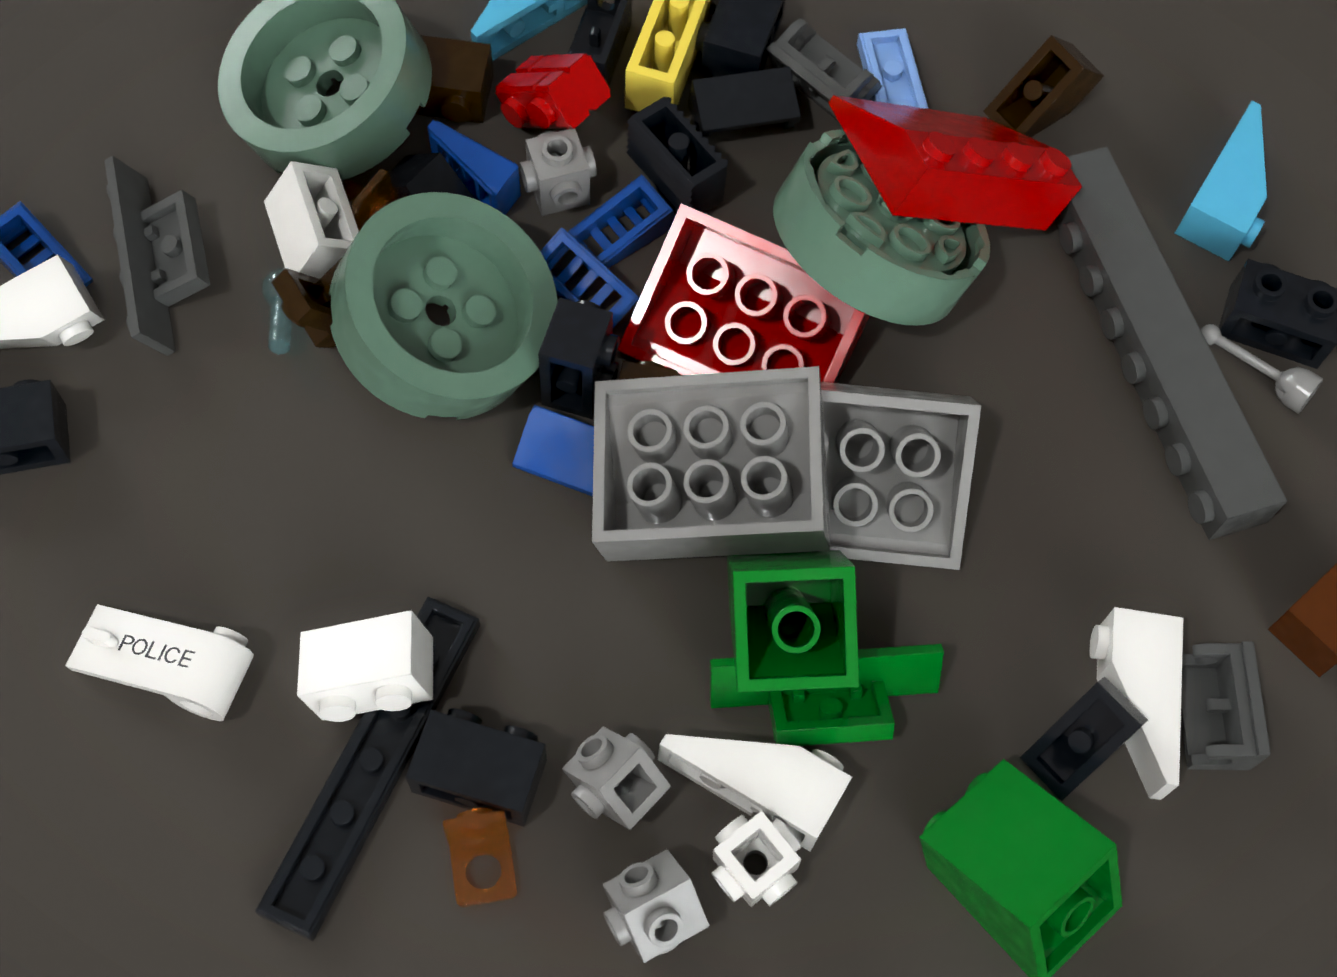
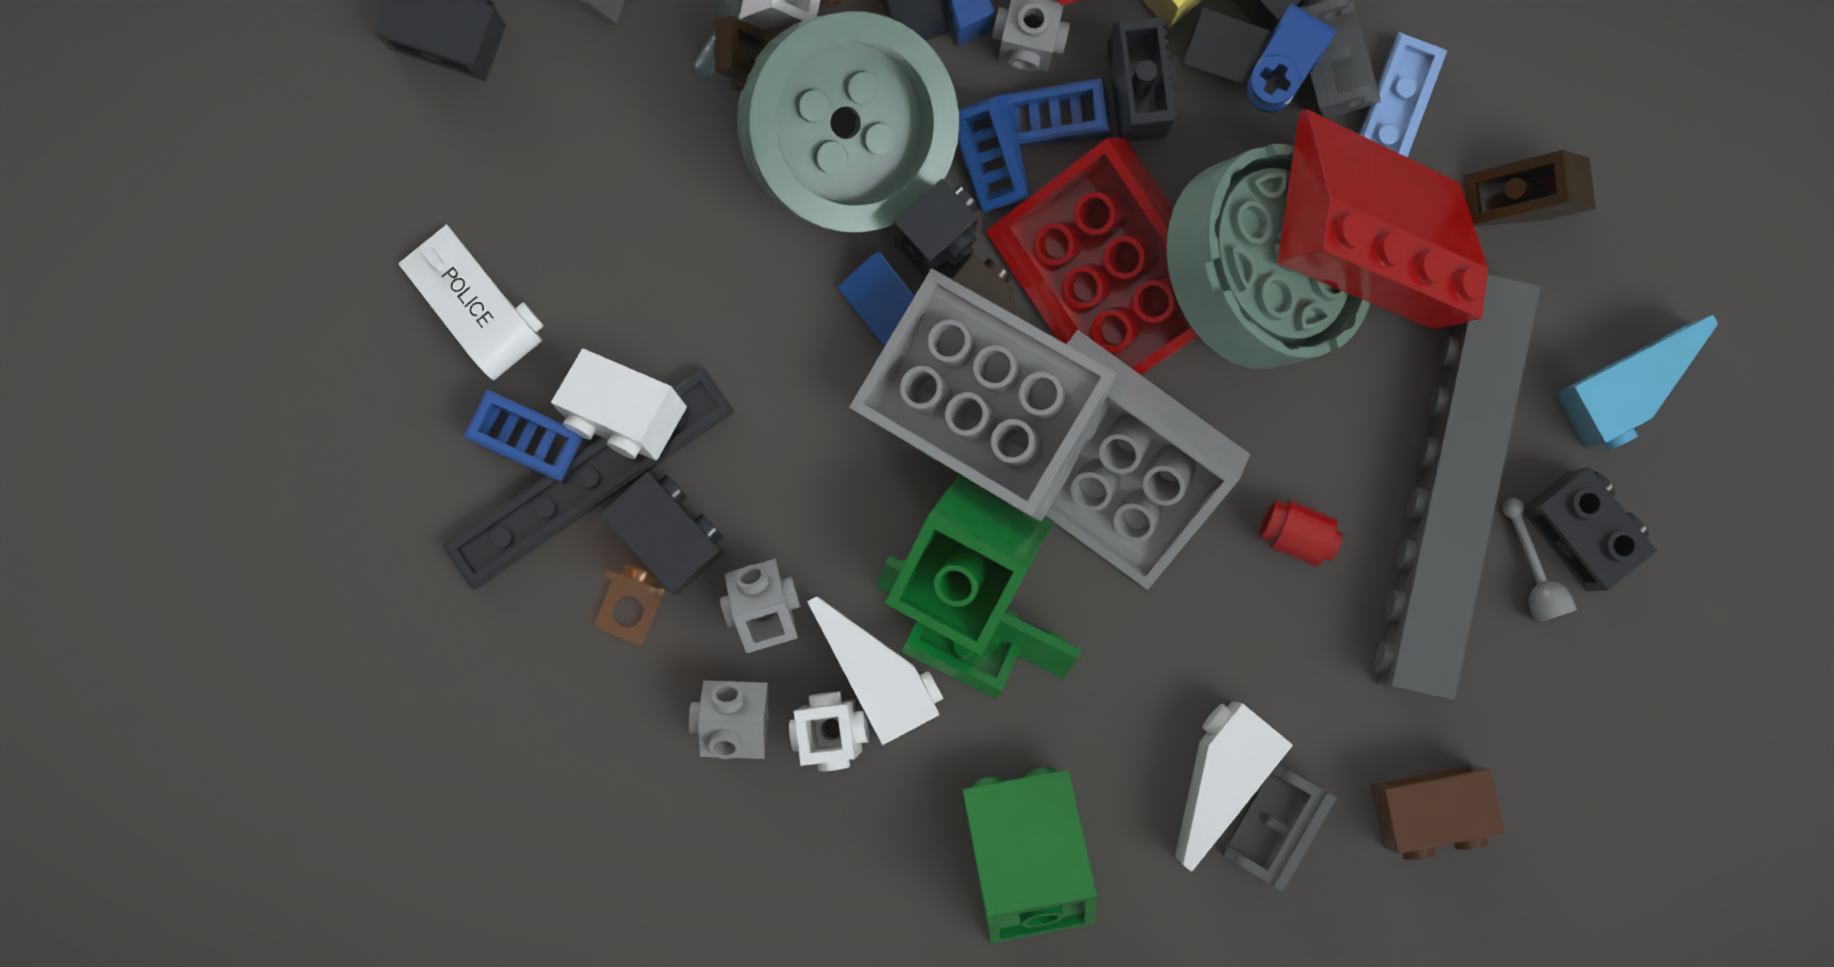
camera: 30 degrees right, 20 degrees up
(261, 736) = (485, 417): none -> blue slope
(789, 76) = (1291, 54): none -> blue piece
(1056, 443) = (1301, 532): none -> red brick
(1083, 738) = (1146, 788): black slope -> none

